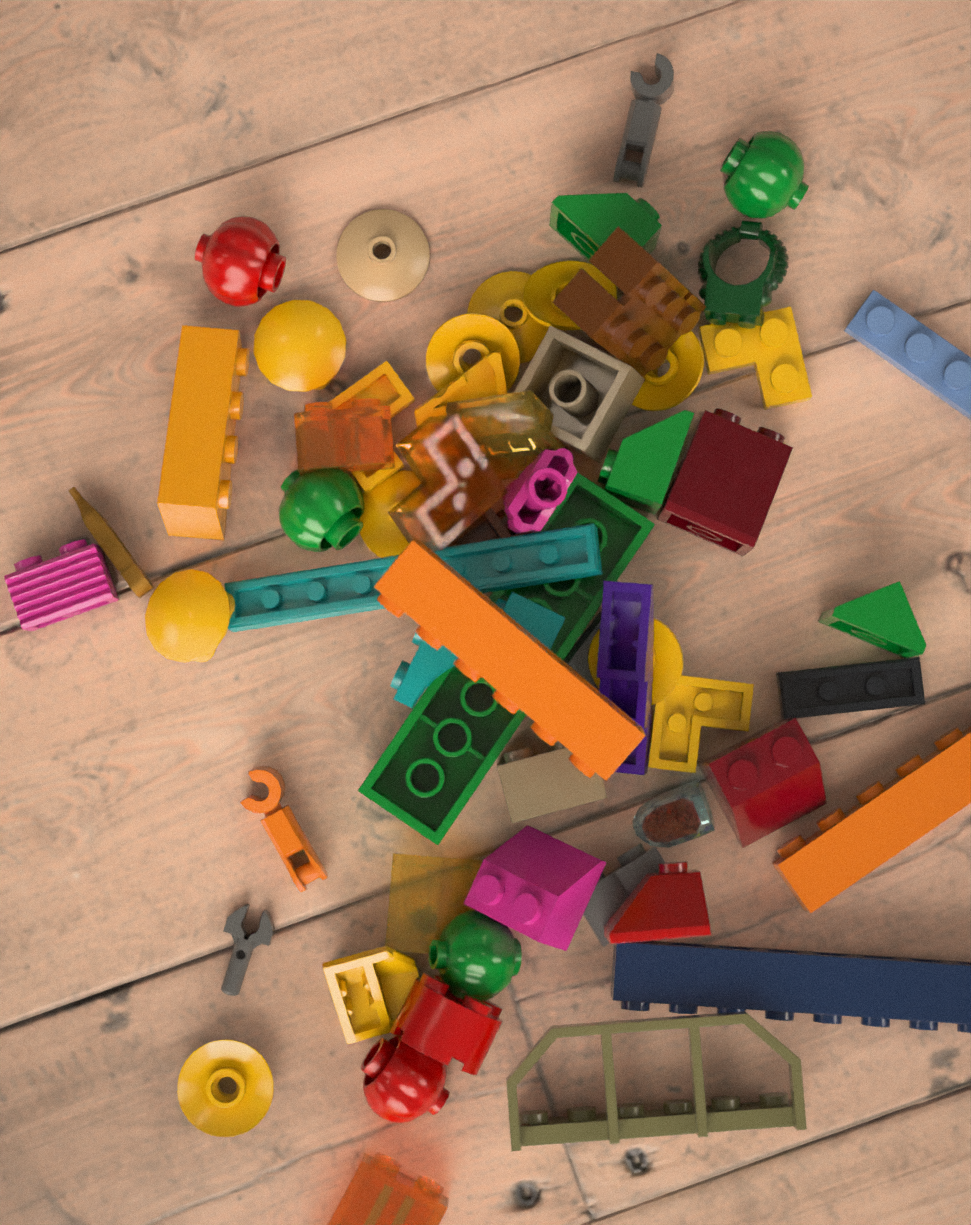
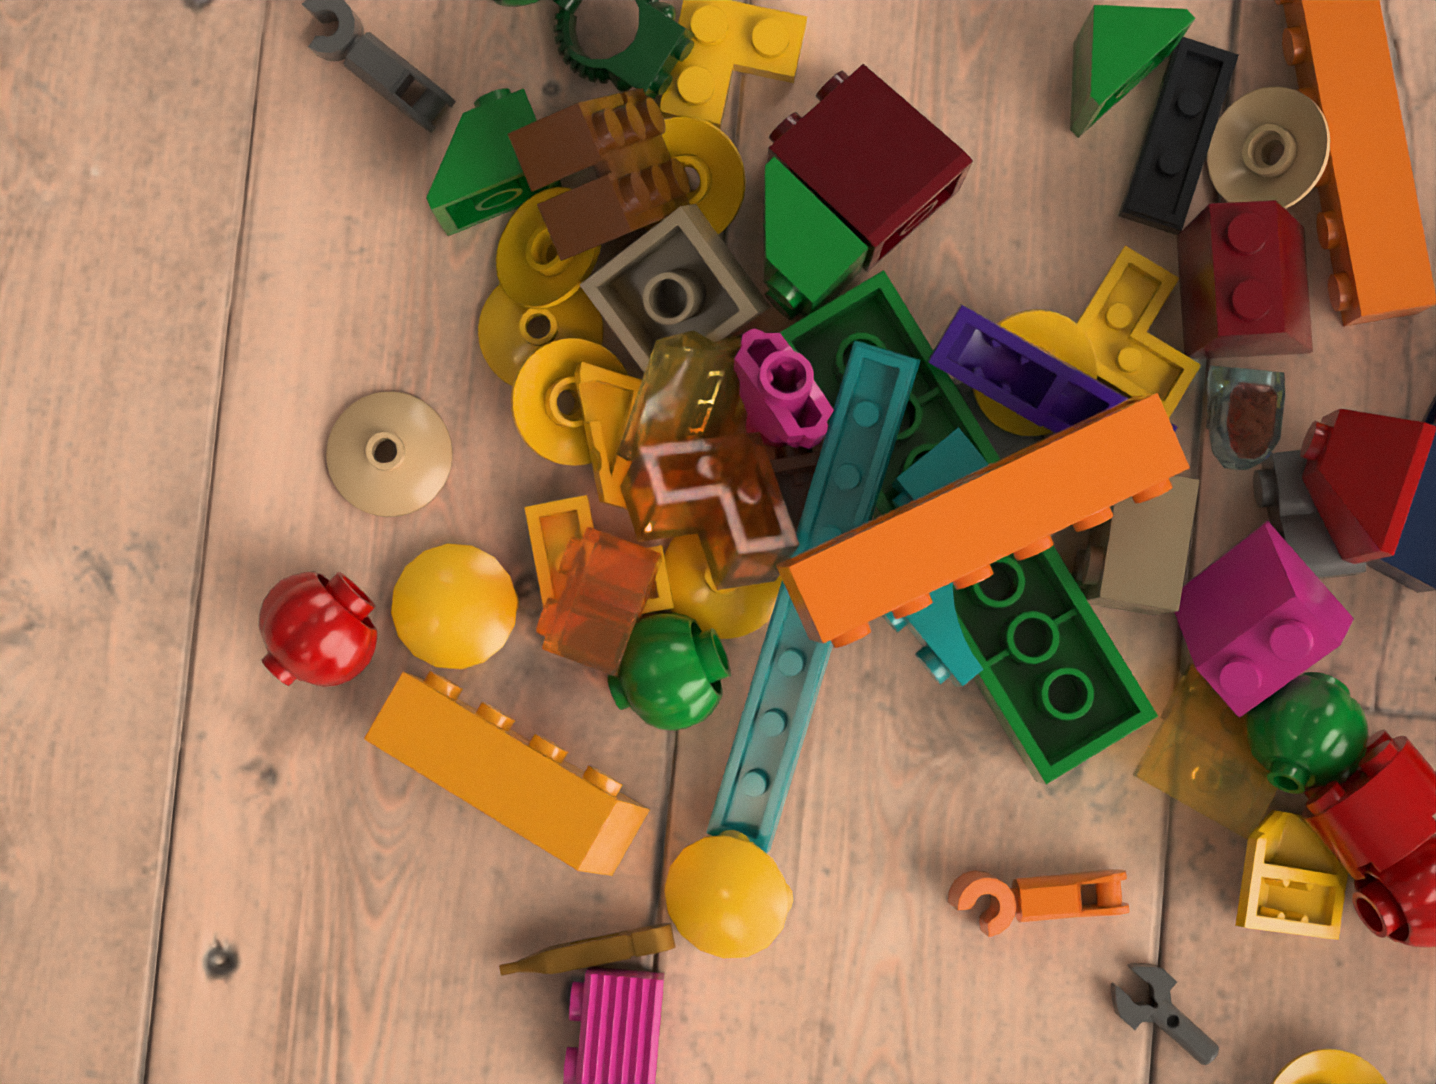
camera: 65 degrees left, 0 degrees up
(862, 737) = (1249, 133): none -> tan dish

